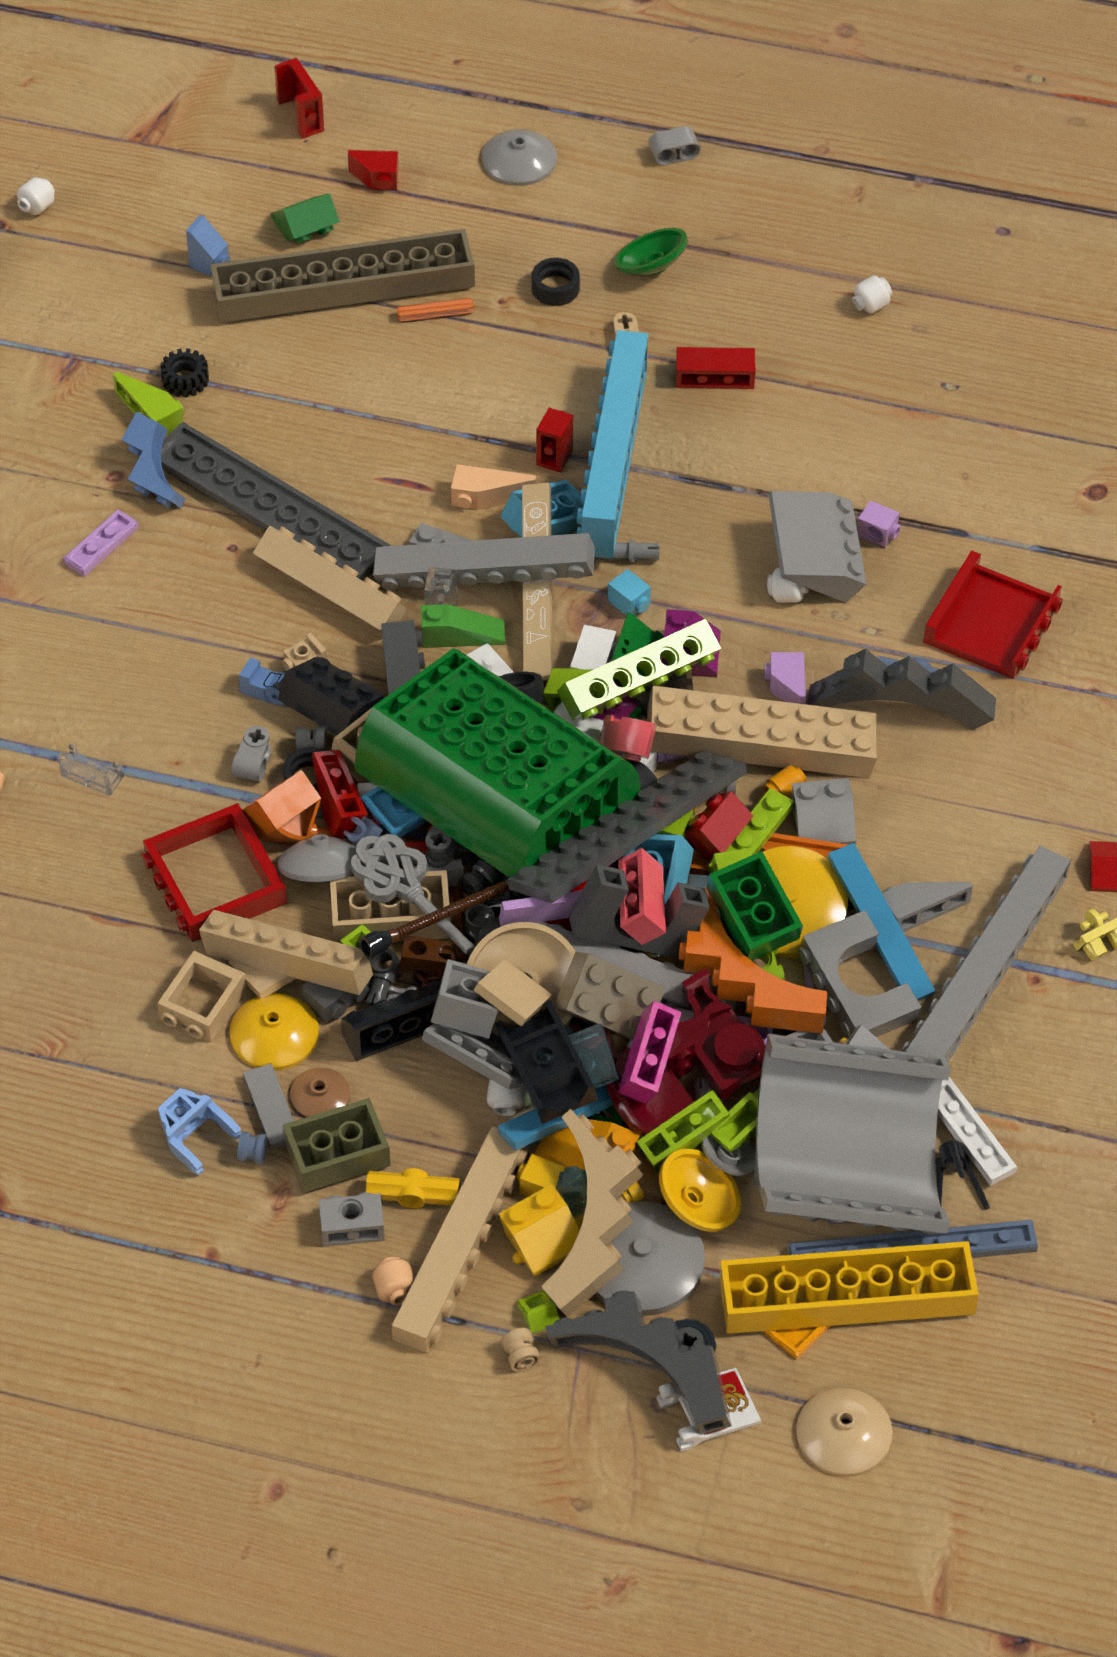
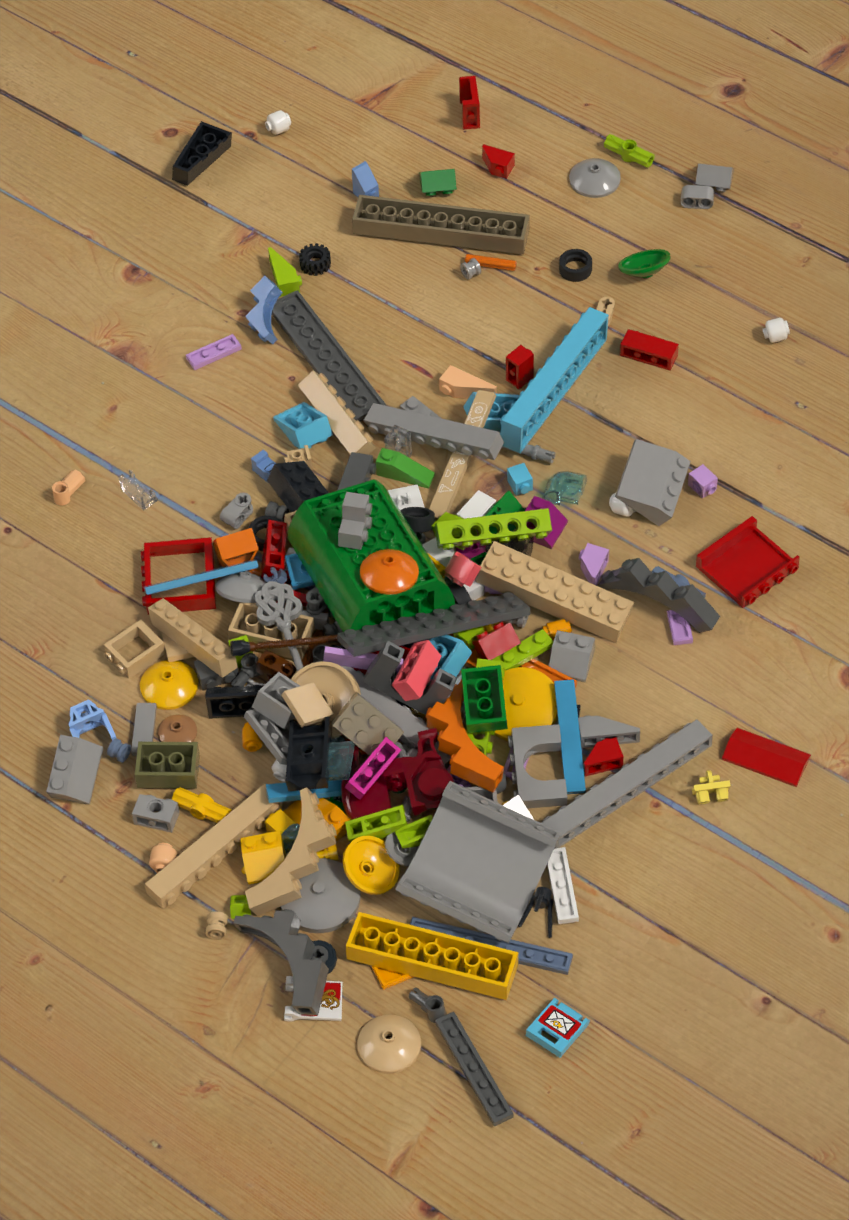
camera: 25 degrees right, 0 degrees up
(205, 1196) = (74, 769): none -> light grey slope
(255, 862) = (199, 577): none -> dark azure tile
(287, 607) = (304, 425): none -> medium azure slope
(413, 325) = (470, 268): none -> light grey wheel
(435, 1067) = (250, 739): none -> light orange brick
(469, 711) = (355, 520): none -> light grey brick
(549, 768) = (389, 571): none -> orange dish
(550, 107) = (629, 150): none -> lime piece
(684, 111) = (714, 176): none -> light grey slope
(696, 586) = (565, 487): none -> clear light blue brick
(874, 1357) = (428, 1004): none -> dark grey pin
(940, 935) = (604, 757): none -> red slope
(945, 731) = (679, 628): none -> lavender tile
(981, 1424) = (474, 1069): none -> dark grey plate
(1066, 1320) = (559, 1022): none -> medium azure container

